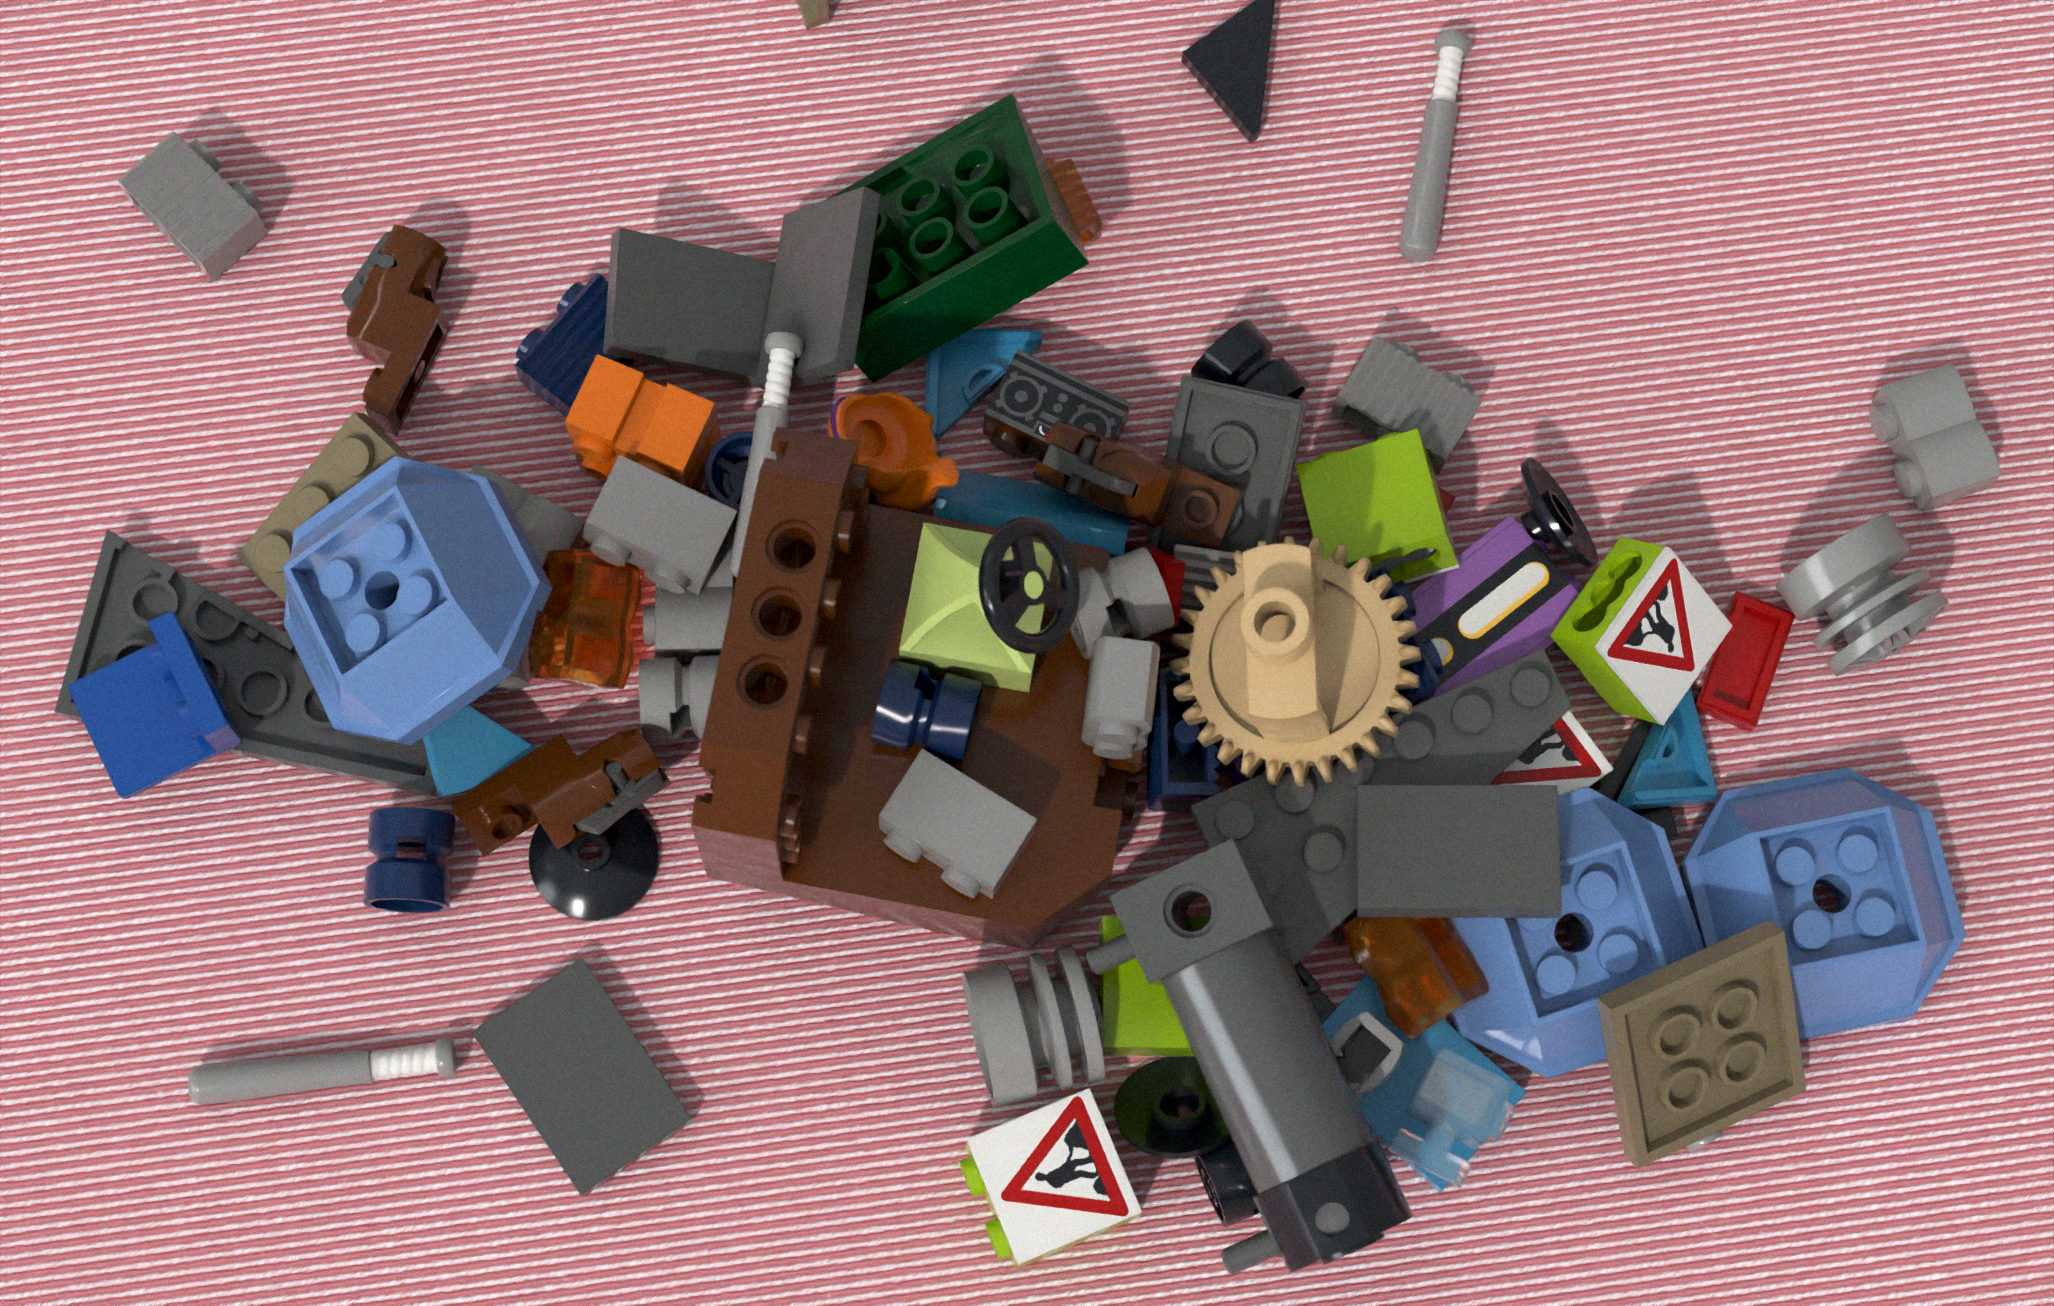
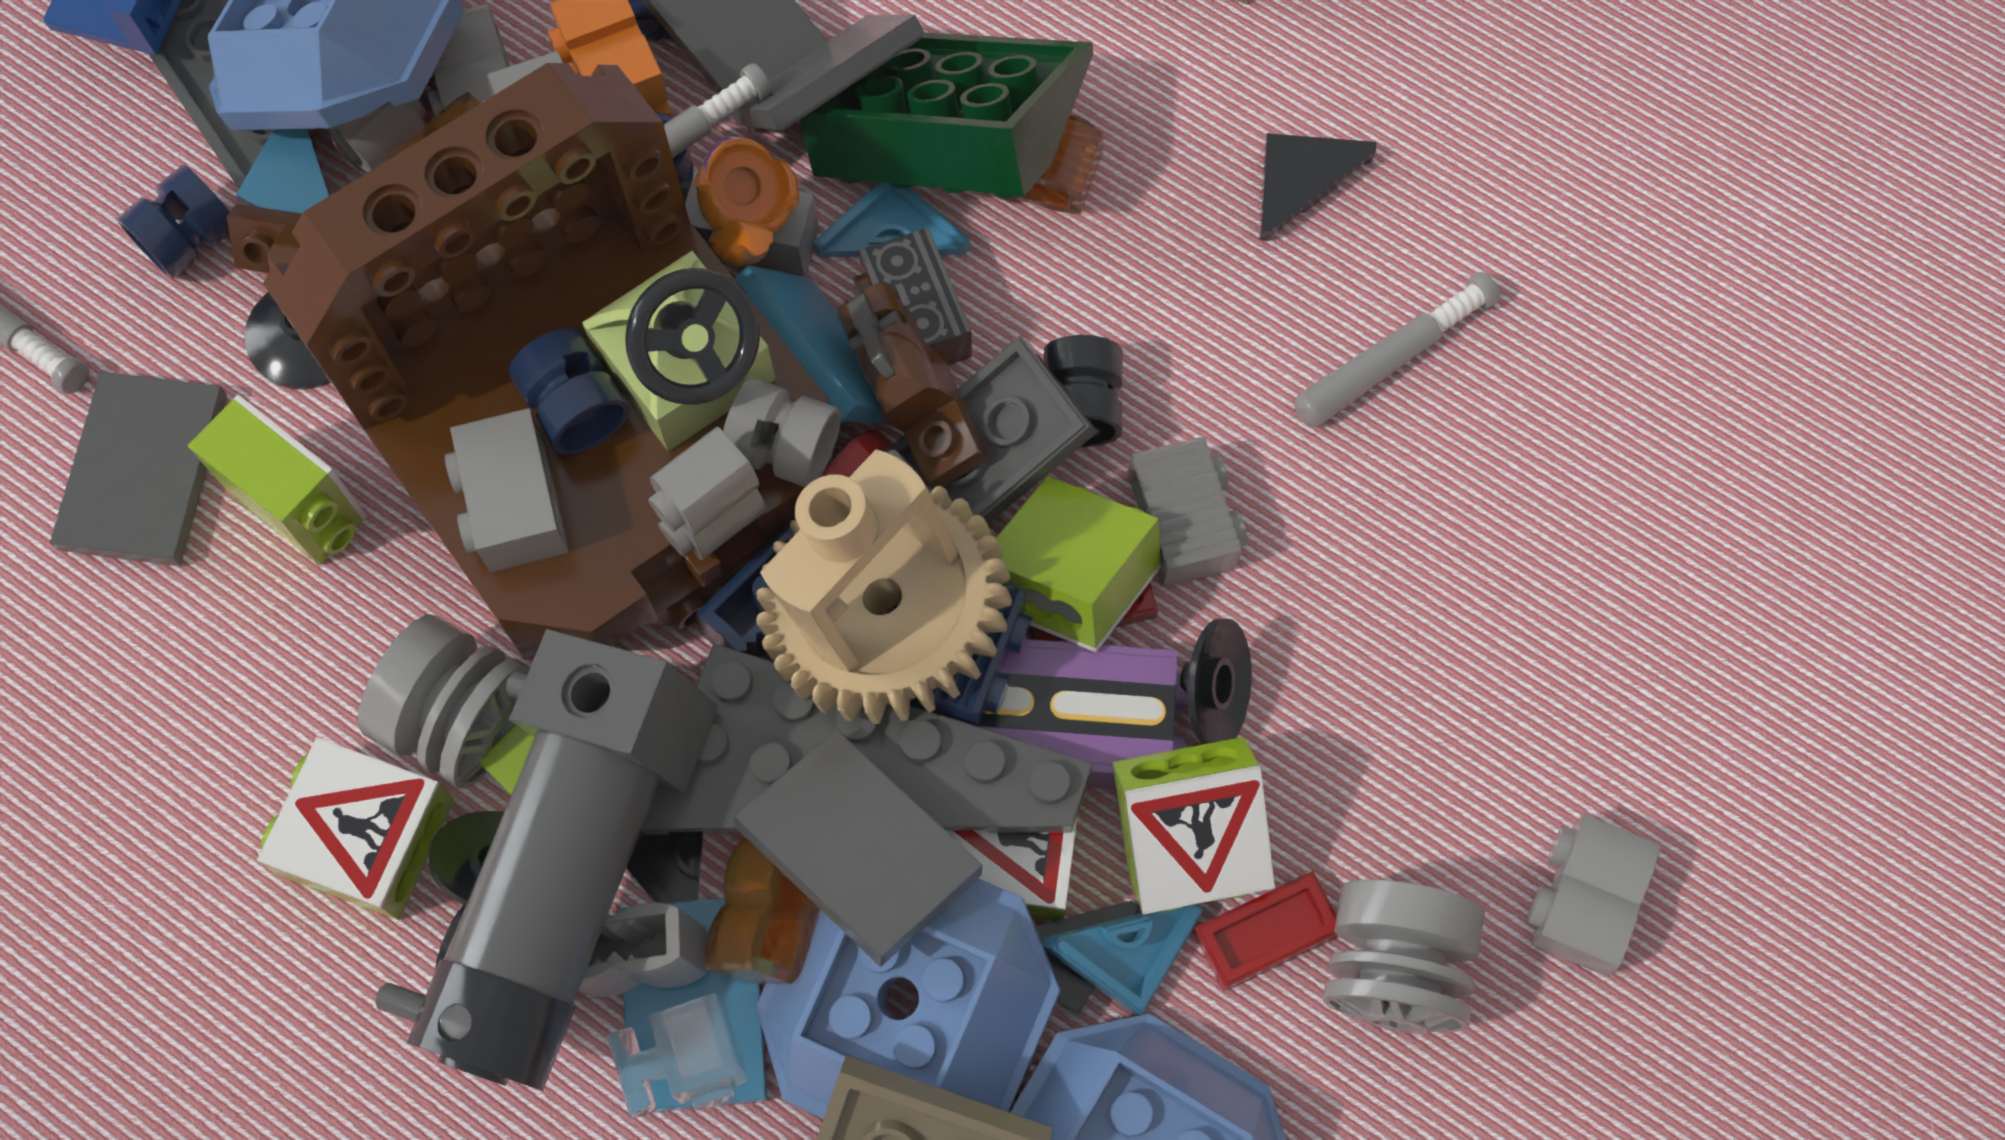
camera: 50 degrees right, 5 degrees down
(731, 982) = (279, 480): none -> lime piece

